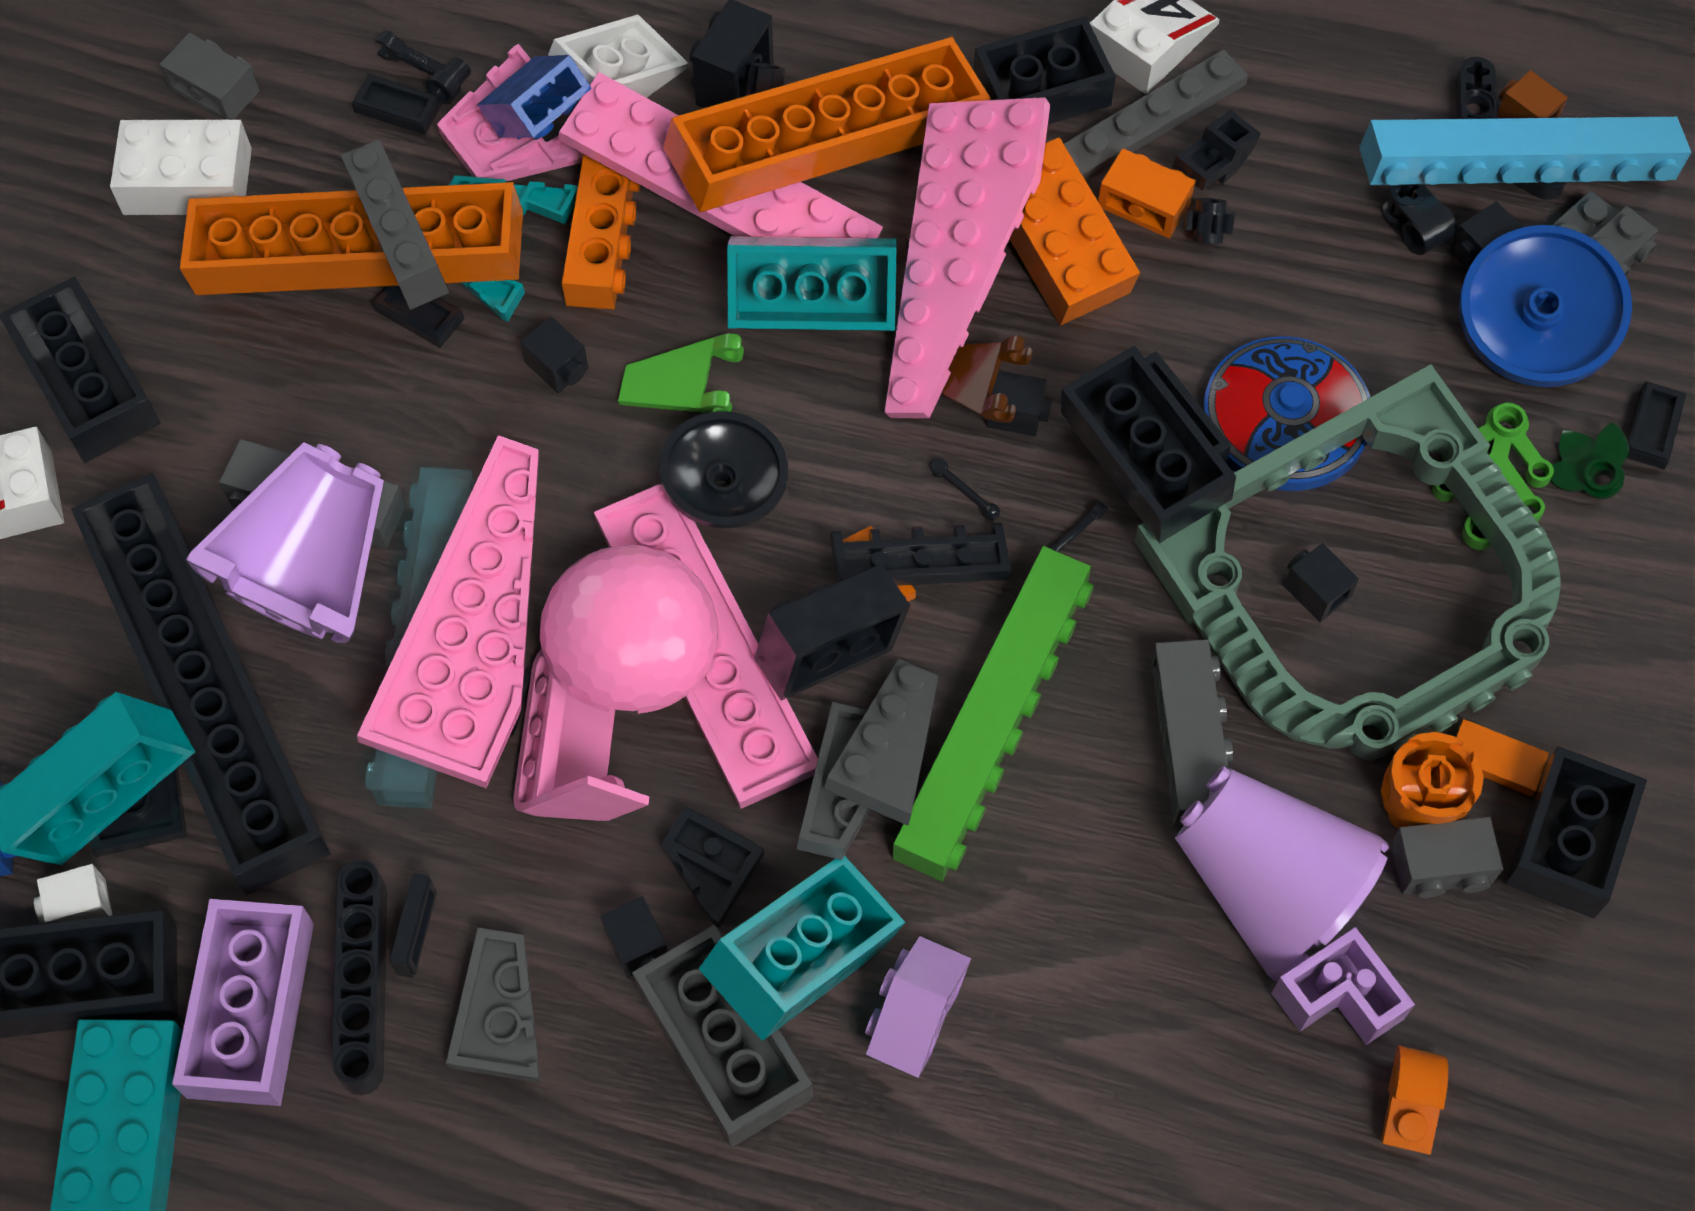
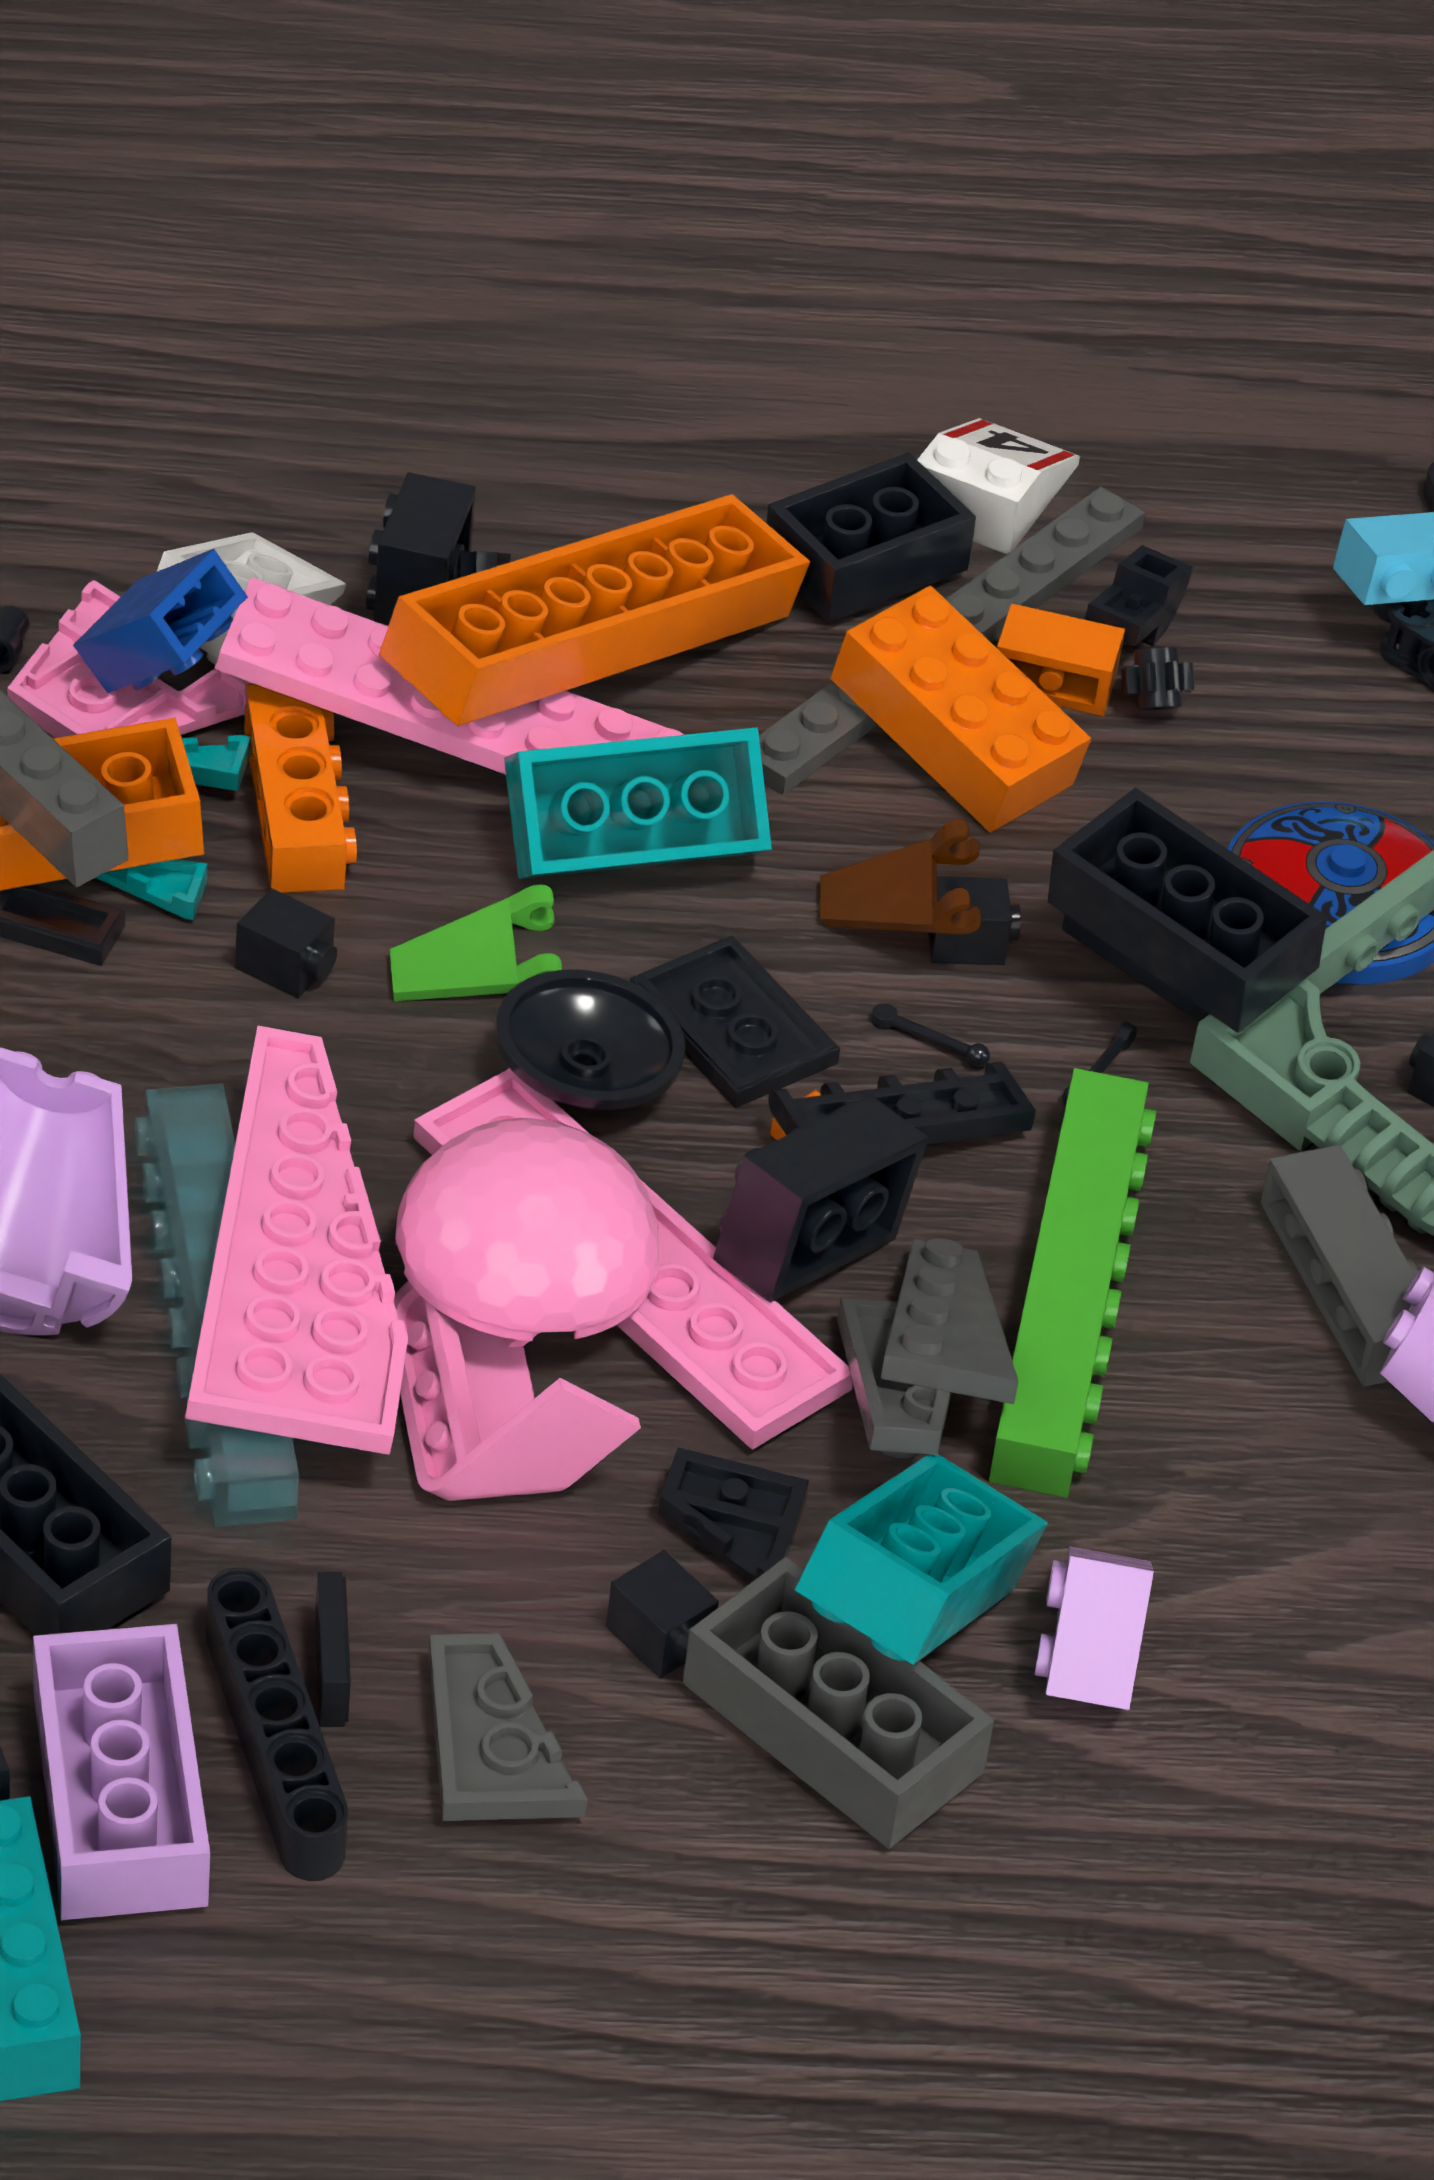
camera: 20 degrees left, 20 degrees down
(836, 457) = (739, 1021): none -> black tile
(969, 198) = (831, 678): bright pink wing -> none

